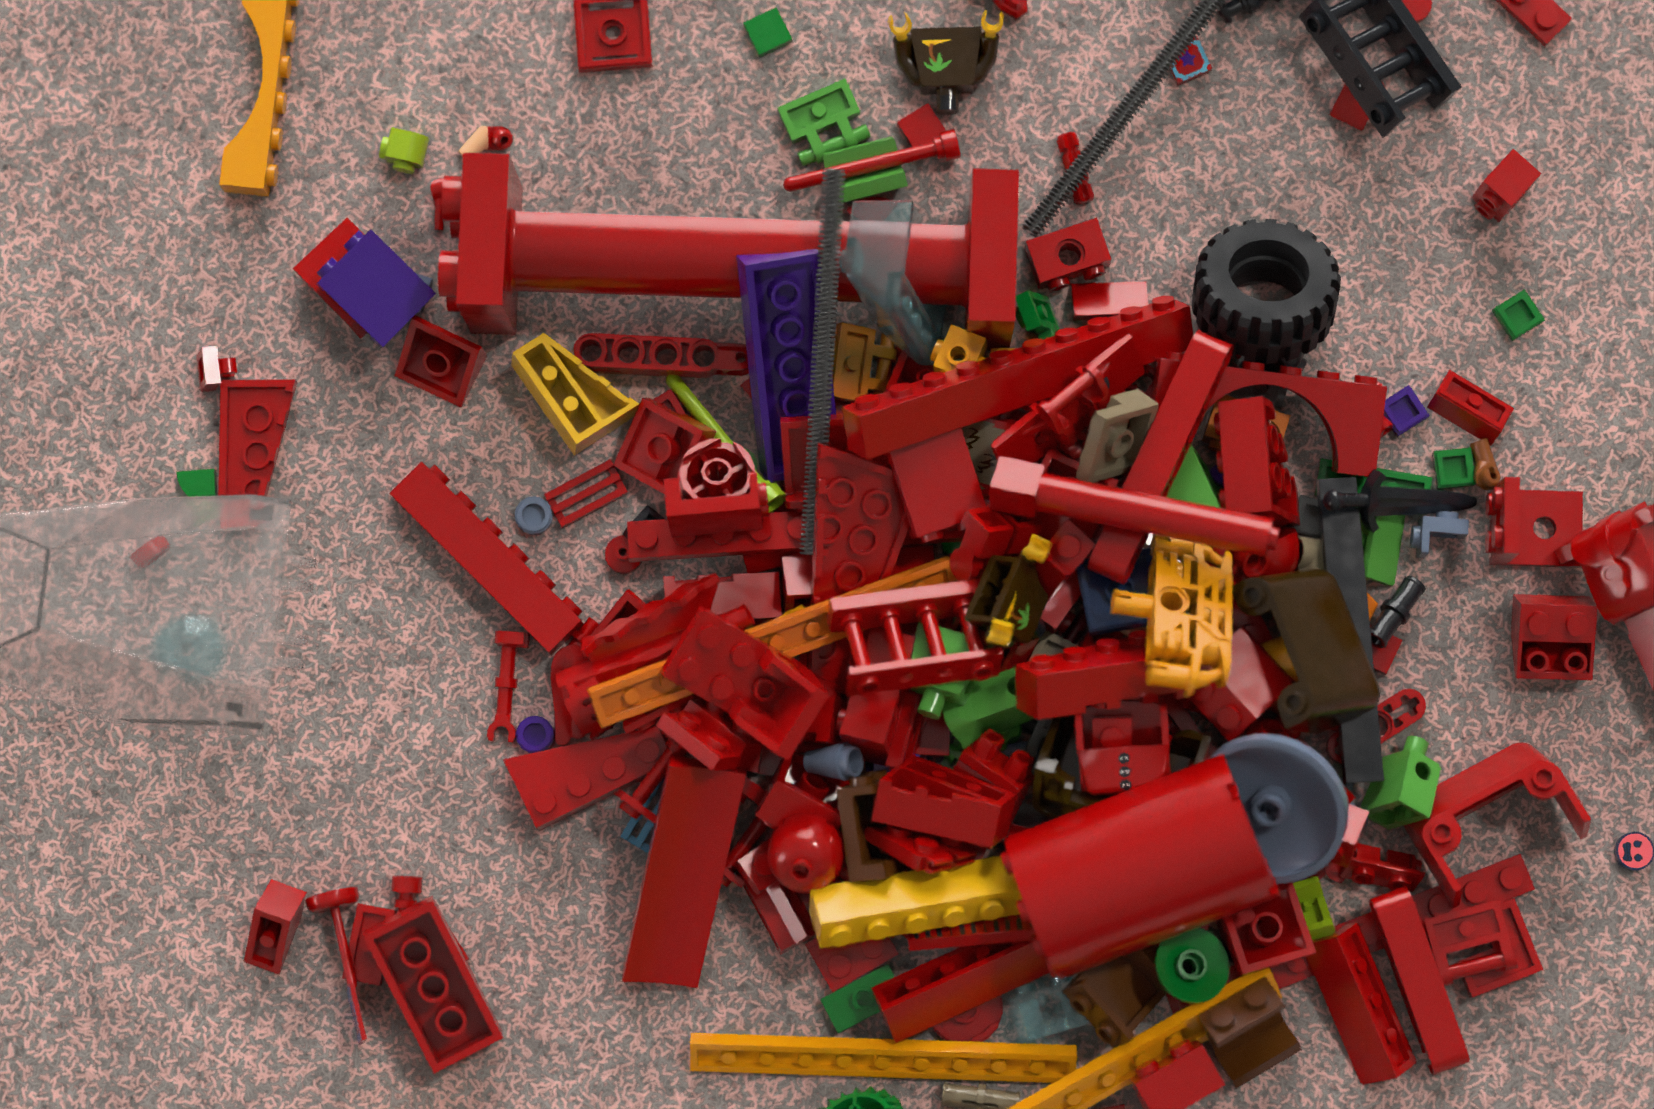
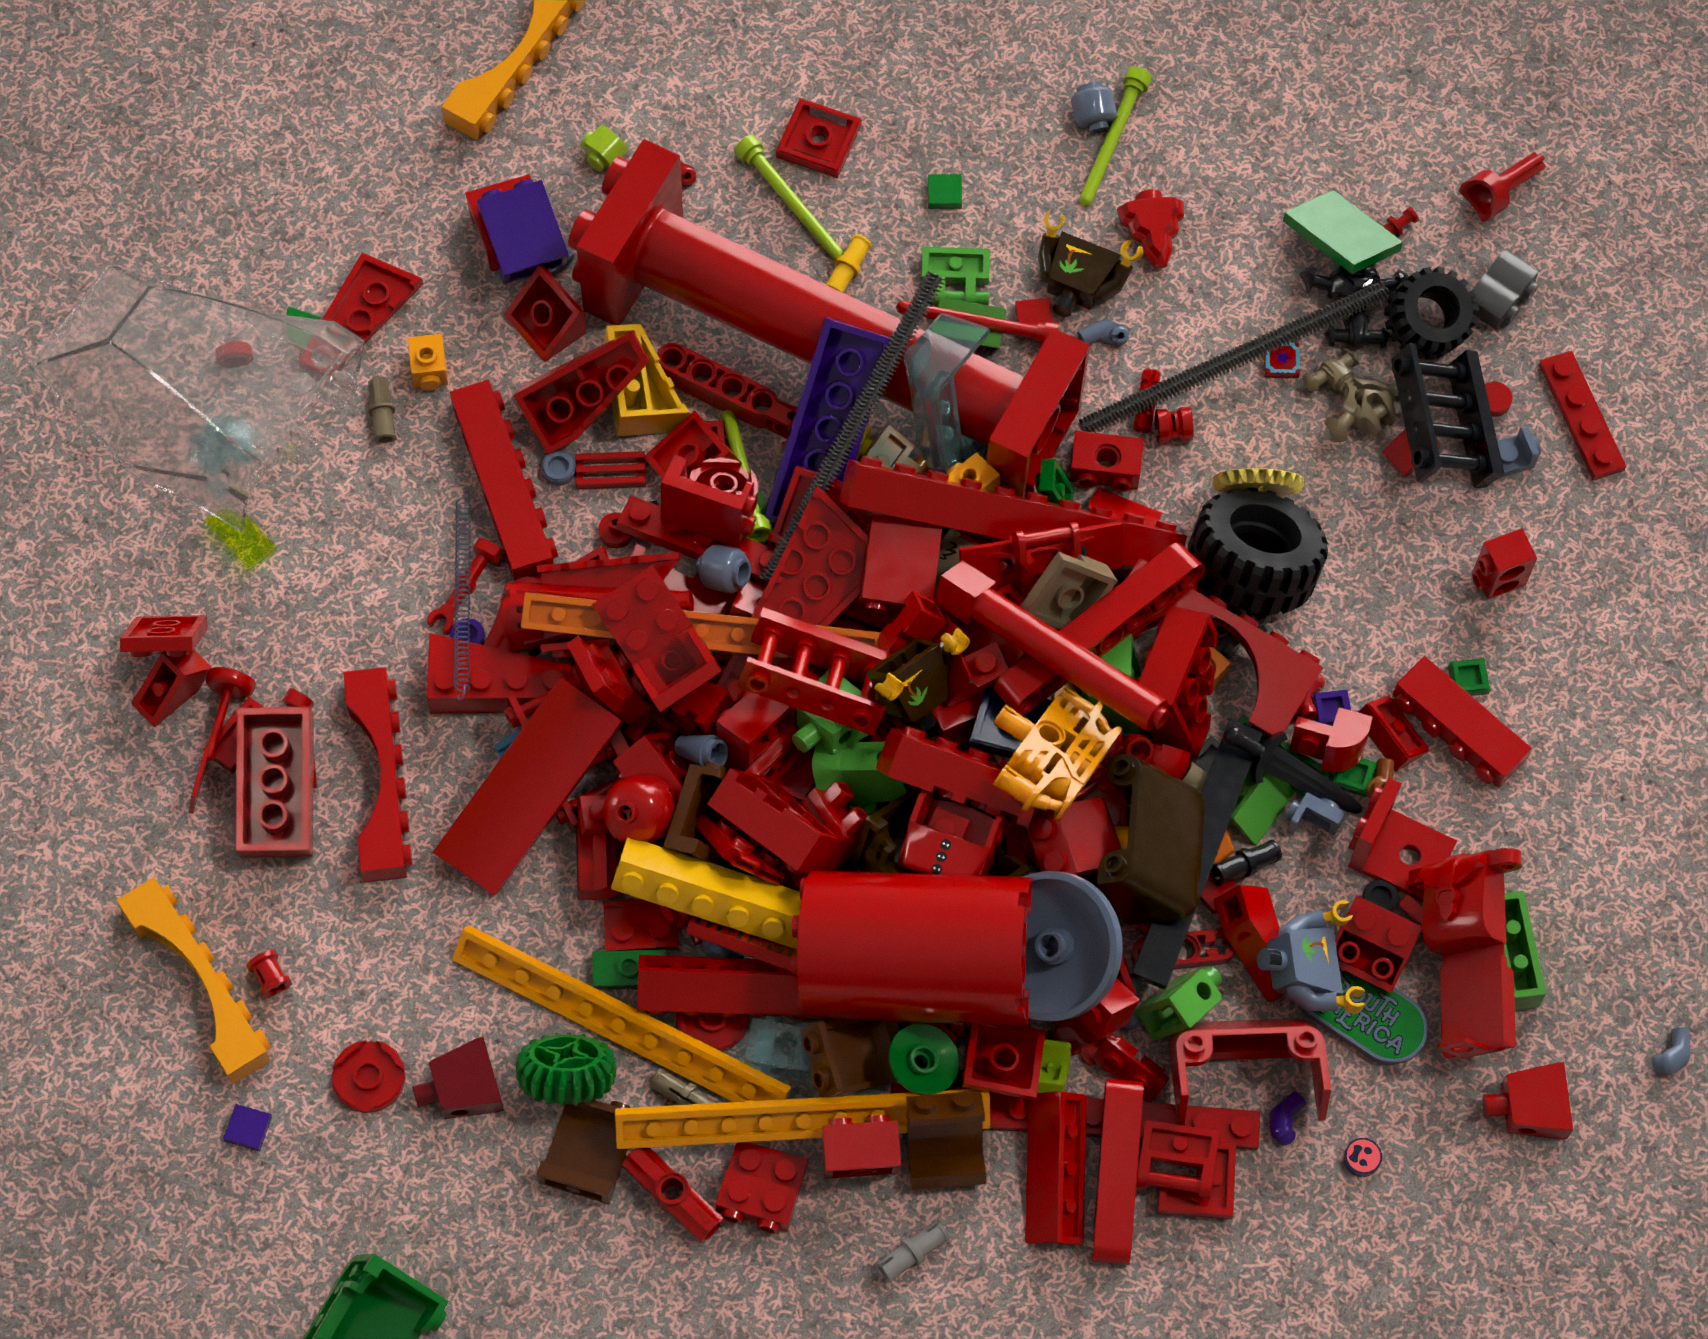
camera: 20 degrees right, 15 degrees down
(213, 369) = (362, 242): tile -> none
(245, 887) = (163, 633): none -> red plate
(272, 745) = (248, 546): none -> clear neon green tile
(327, 538) = (381, 410): none -> dark tan axle
(348, 467) = (428, 361): none -> light orange brick
(514, 438) = (577, 392): none -> red wedge
(518, 697) = (463, 600): none -> sand blue piece
(554, 81) = (751, 151): none -> lime piece
(565, 990) = (382, 840): none -> red arch
(711, 163) = (848, 265): none -> yellow pin
(761, 561) = (723, 569): none -> sand blue head
(1000, 111) = (1104, 331): none -> sand blue arm
(1116, 183) = (1174, 424): none -> red wheel
(1231, 214) = (1278, 481): none -> light yellow gear
(1289, 70) = (1363, 400): none -> dark tan piece
(1430, 450) = (1337, 745): none -> red brick
(1442, 686) = (1248, 925): none -> red slope
(1463, 52) = (1519, 452): none -> sand blue bracket
(1503, 694) = (1307, 965): none -> sand blue torso
(1533, 369) = (1460, 722): none -> red brick
(1535, 580) = (1382, 894): none -> black tile
(1542, 849) = (1281, 1118): none -> dark purple arm
(1567, 711) = (1386, 1030): none -> tile
(1574, 584) = (1412, 908): none -> red tile

